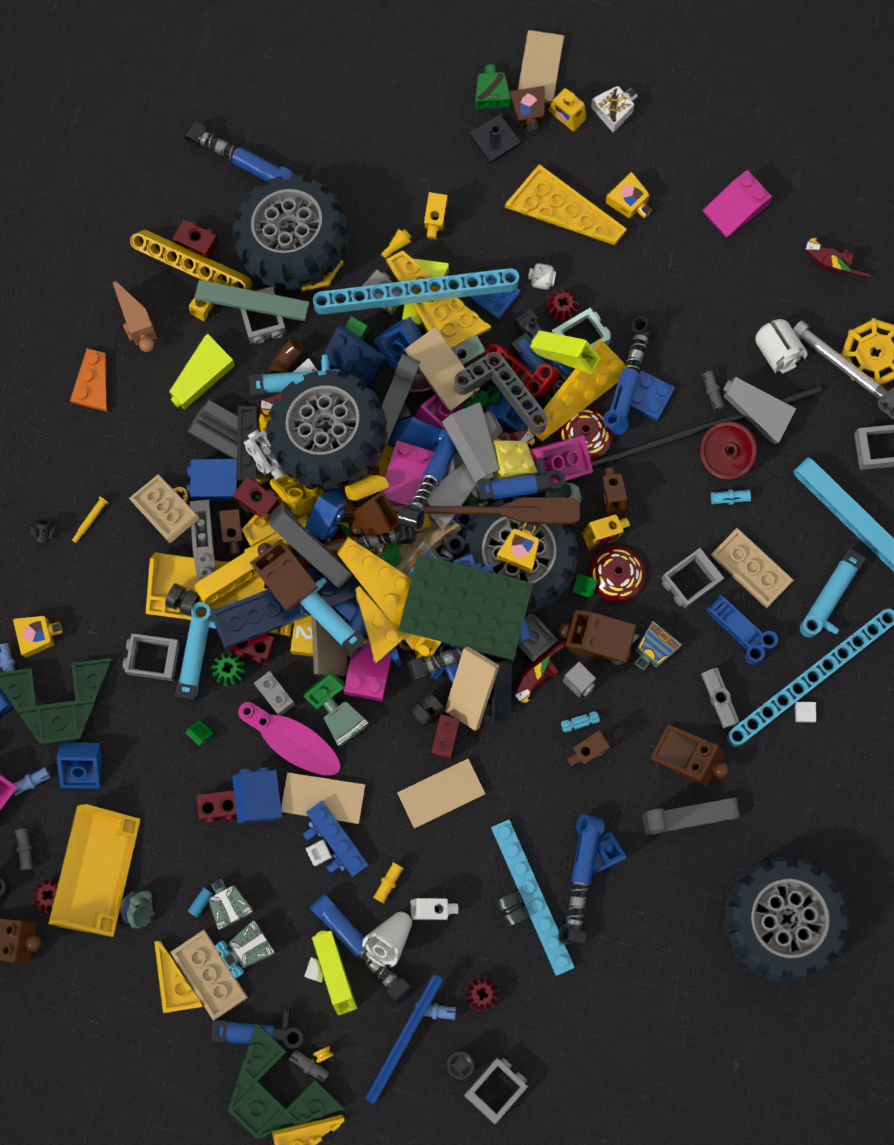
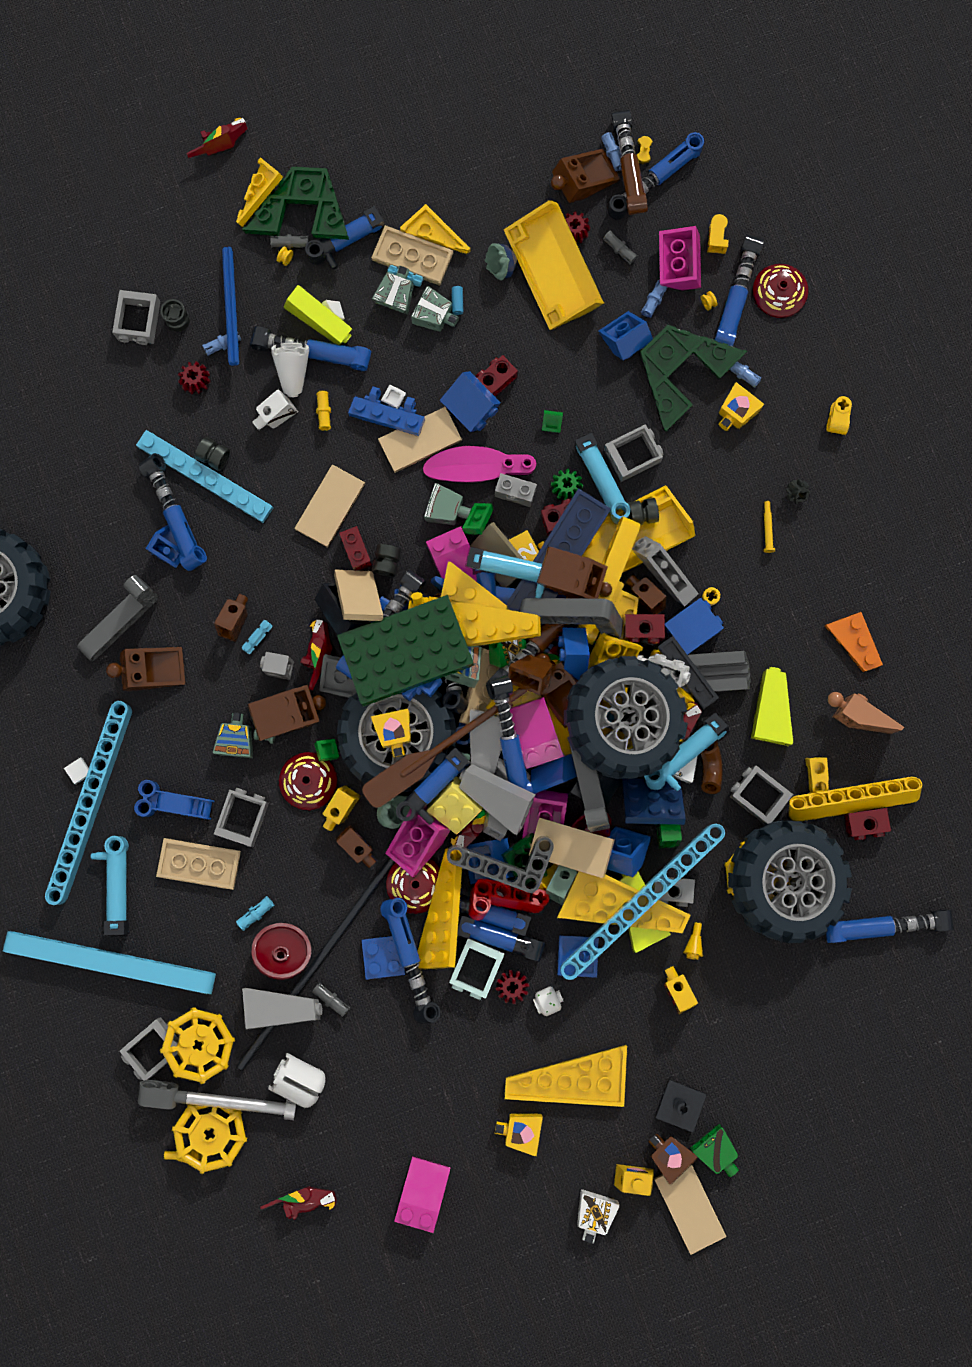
camera: 145 degrees right, 5 degrees up
(164, 508) = (714, 572): tan tile -> none
(252, 300) = (777, 798): sand green tile -> none
(365, 486) = (556, 696): yellow brick -> none
(566, 350) = (475, 934): neon yellow slope -> none
(716, 686) = (145, 726): light grey piece -> none
(835, 416) = (208, 1049): none -> yellow plate

